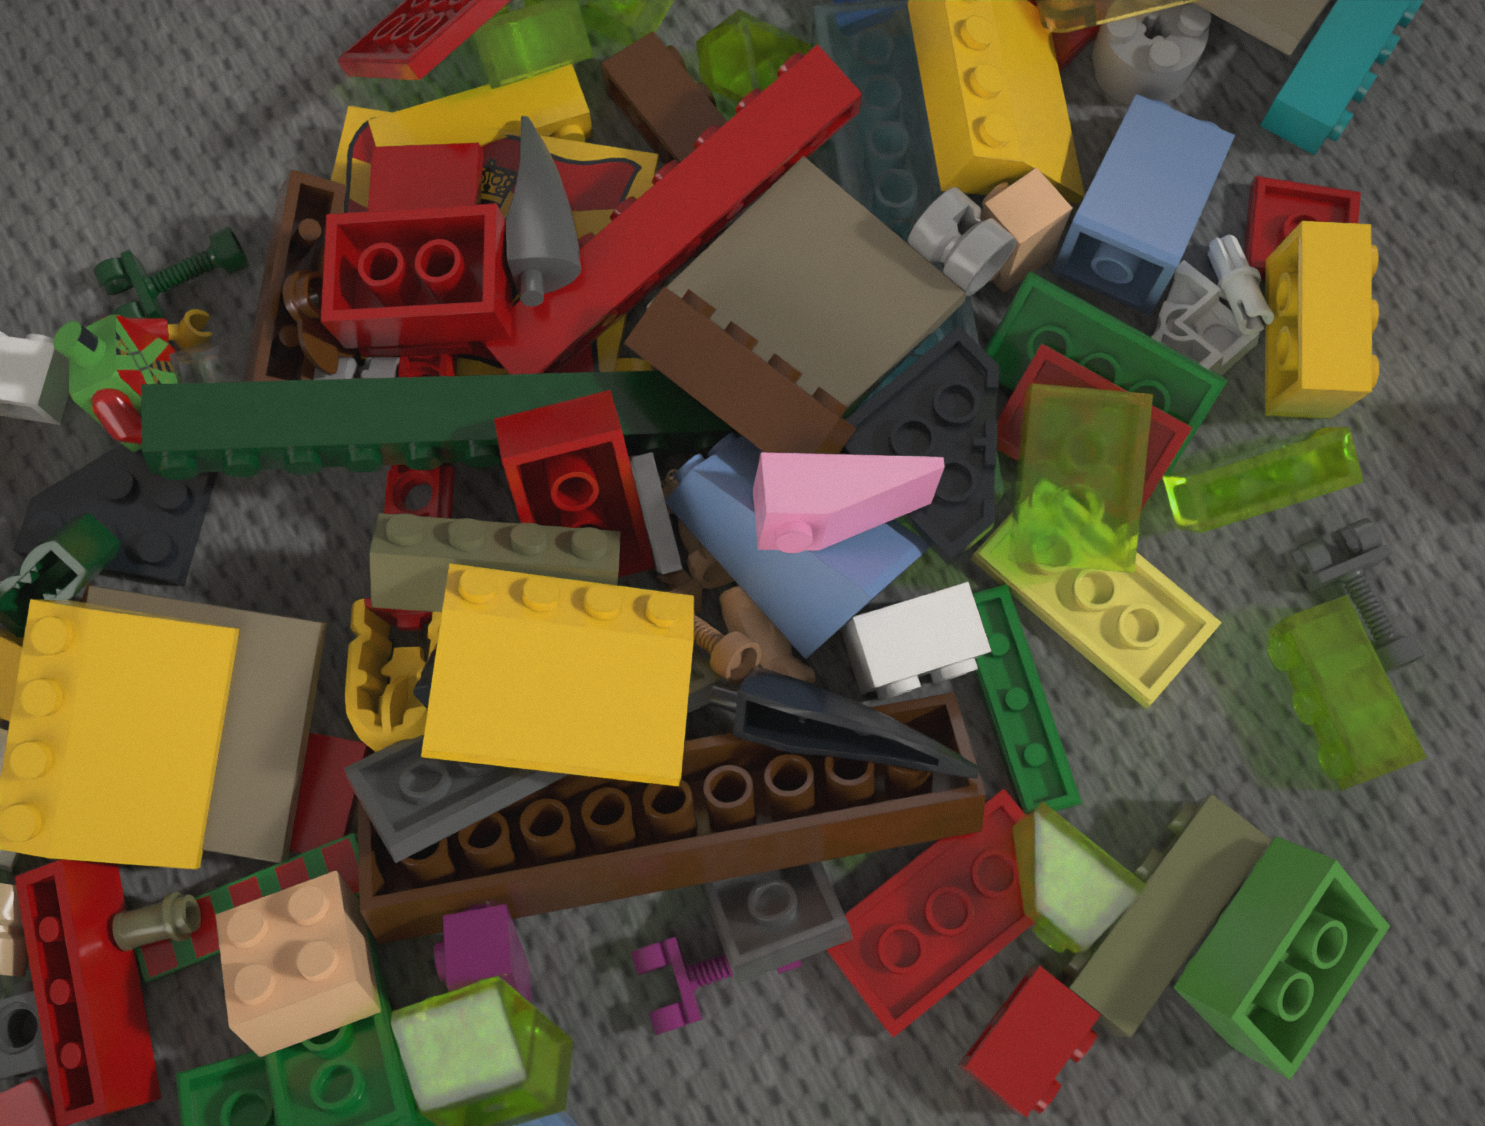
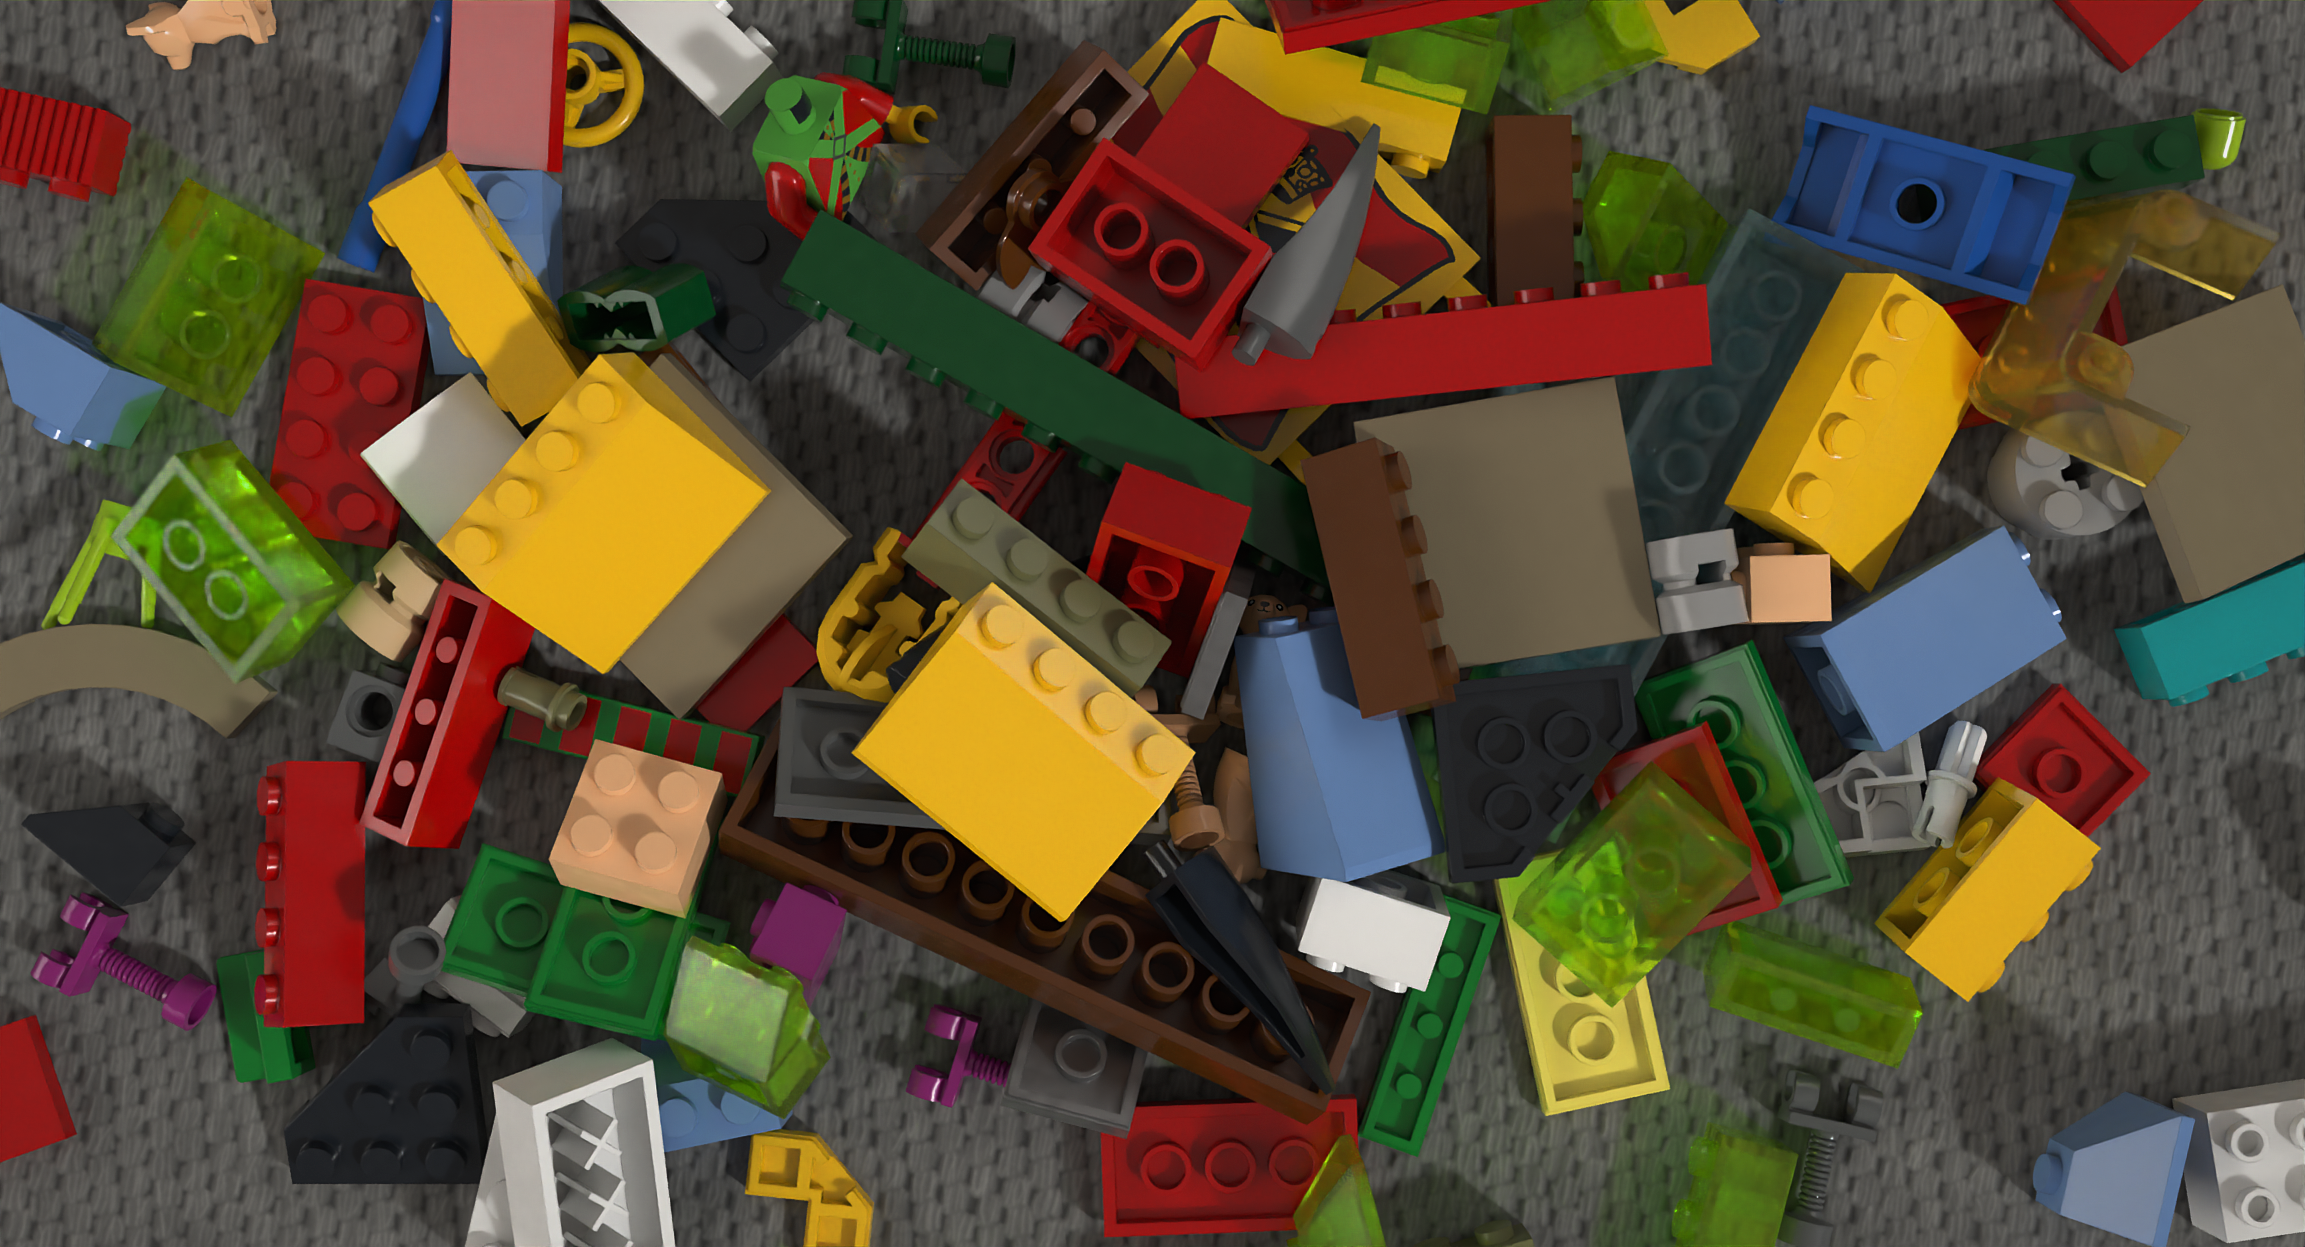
camera: 35 degrees right, 15 degrees up
(831, 497) = (1366, 760): bright pink slope -> none

